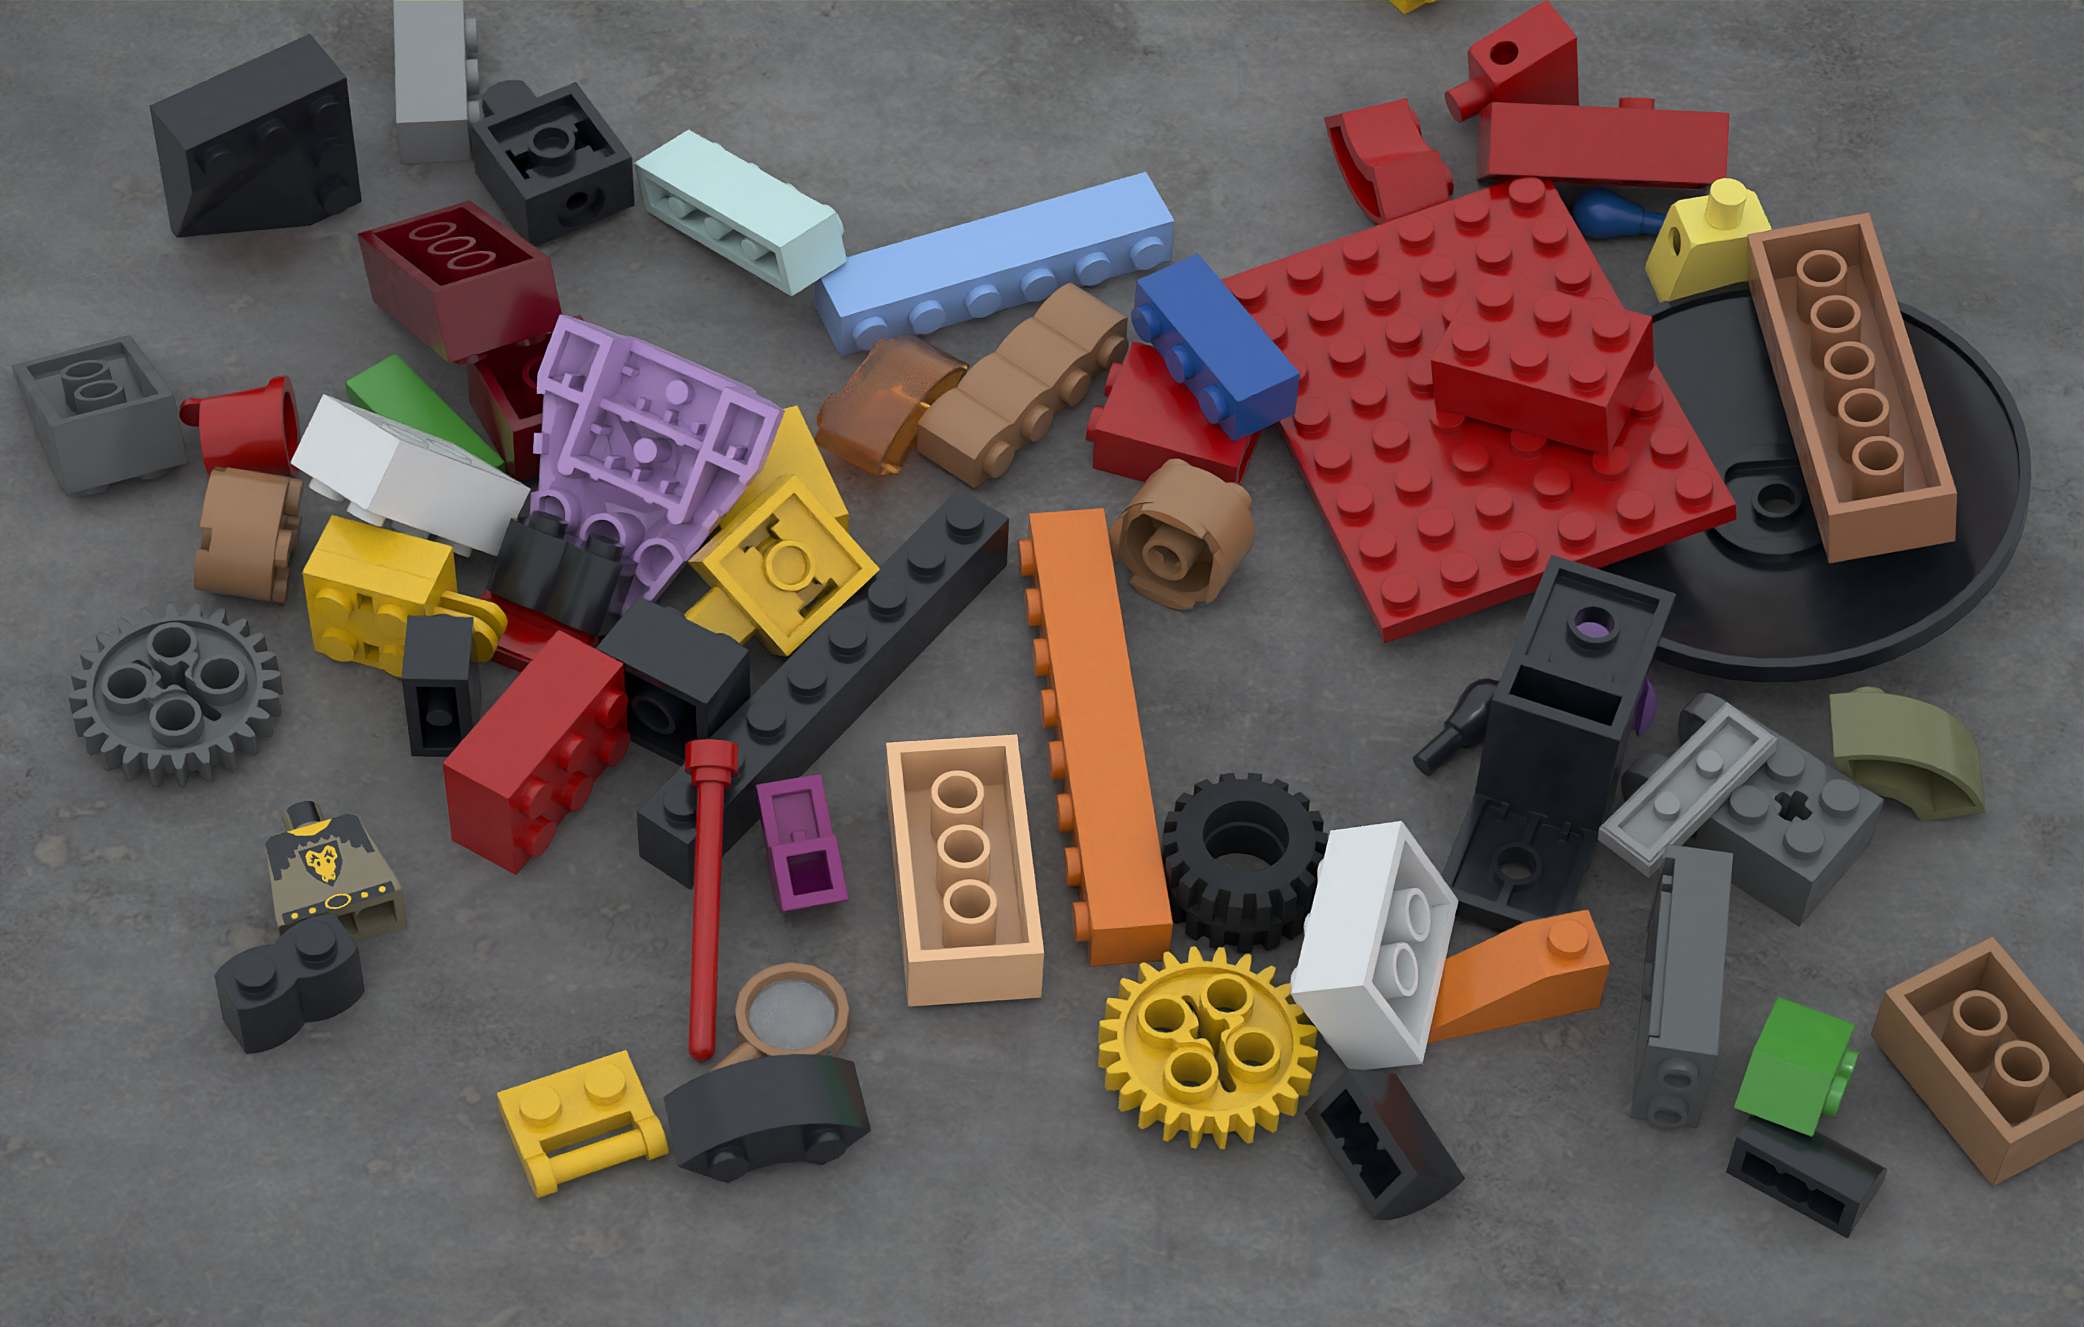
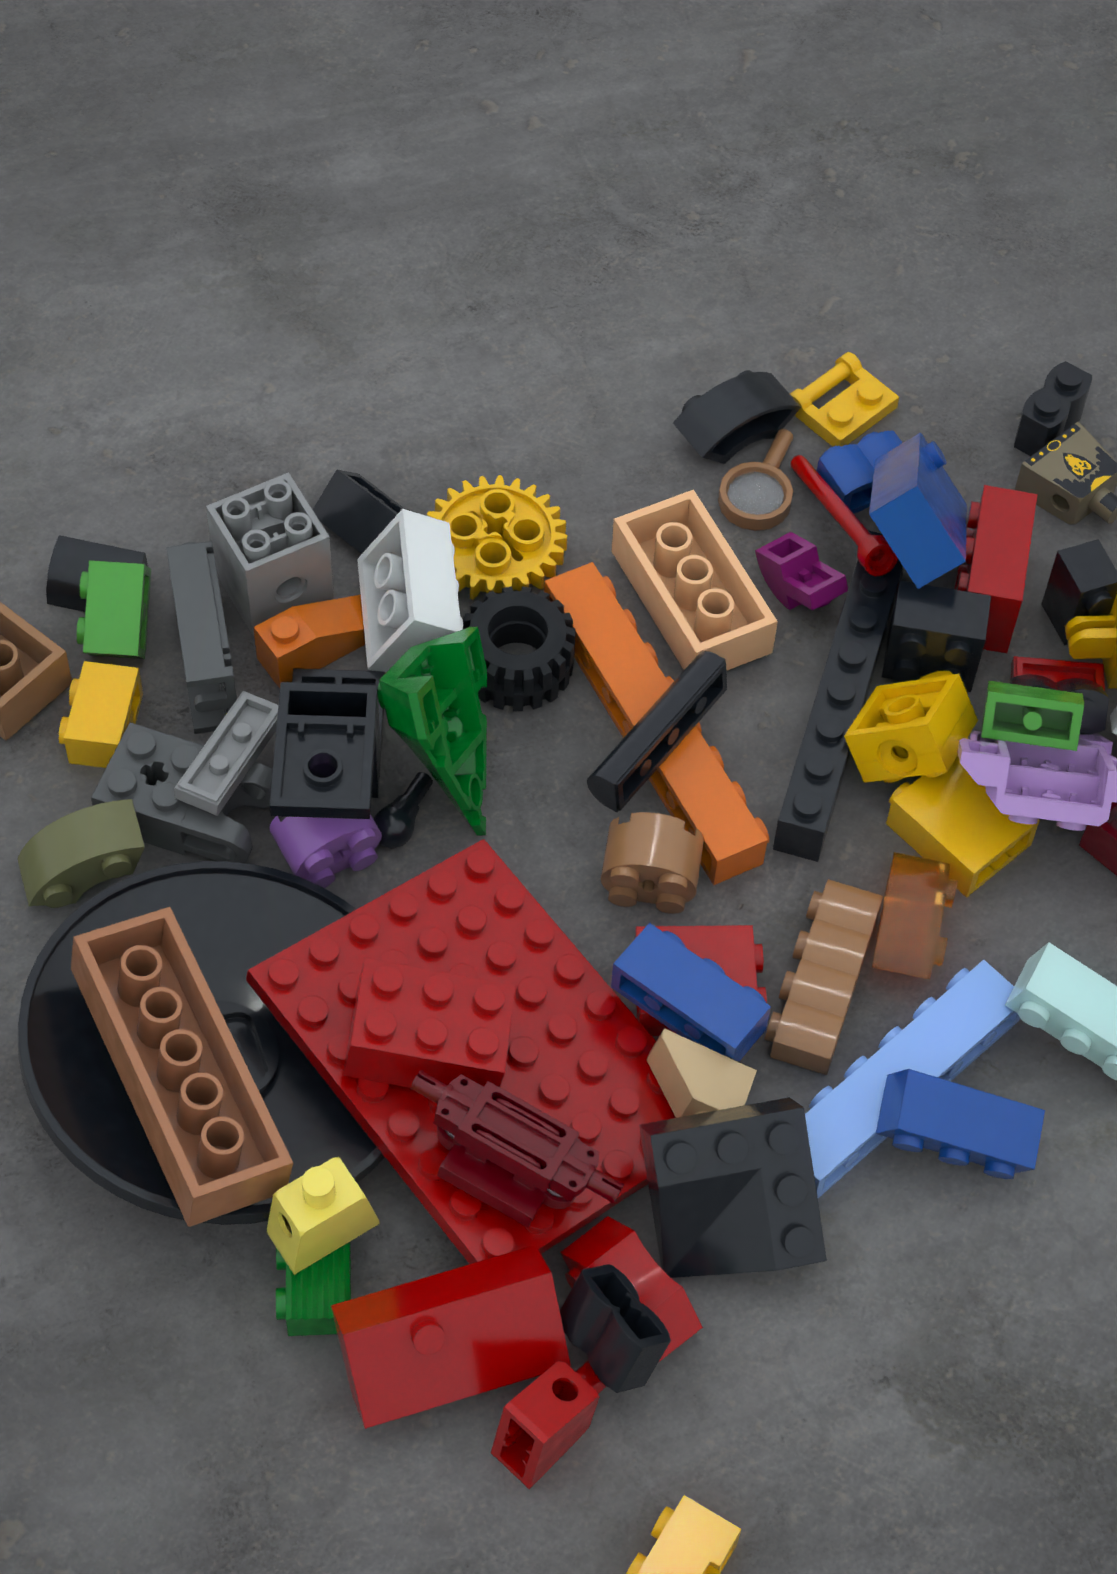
camera: 160 degrees right, 5 degrees up
(617, 982) = (851, 467): none -> blue brick
(622, 788) = (919, 510): none -> blue brick
(634, 498) = (1032, 715): none -> bright green brick
(964, 172) = (960, 1123): none -> blue brick
(1111, 647) = (659, 731): none -> black brick
(1237, 172) = (733, 1190): none -> black slope
(1243, 265) = (697, 1077): none -> tan slope
(1412, 710) = (438, 714): none -> green wedge
(1433, 88) = (613, 1328): none -> black brick
(1484, 219) = (510, 1150): none -> dark red piece
(1557, 1062) = (270, 550): none -> light grey brick
(1842, 950) = (101, 709): none -> yellow brick

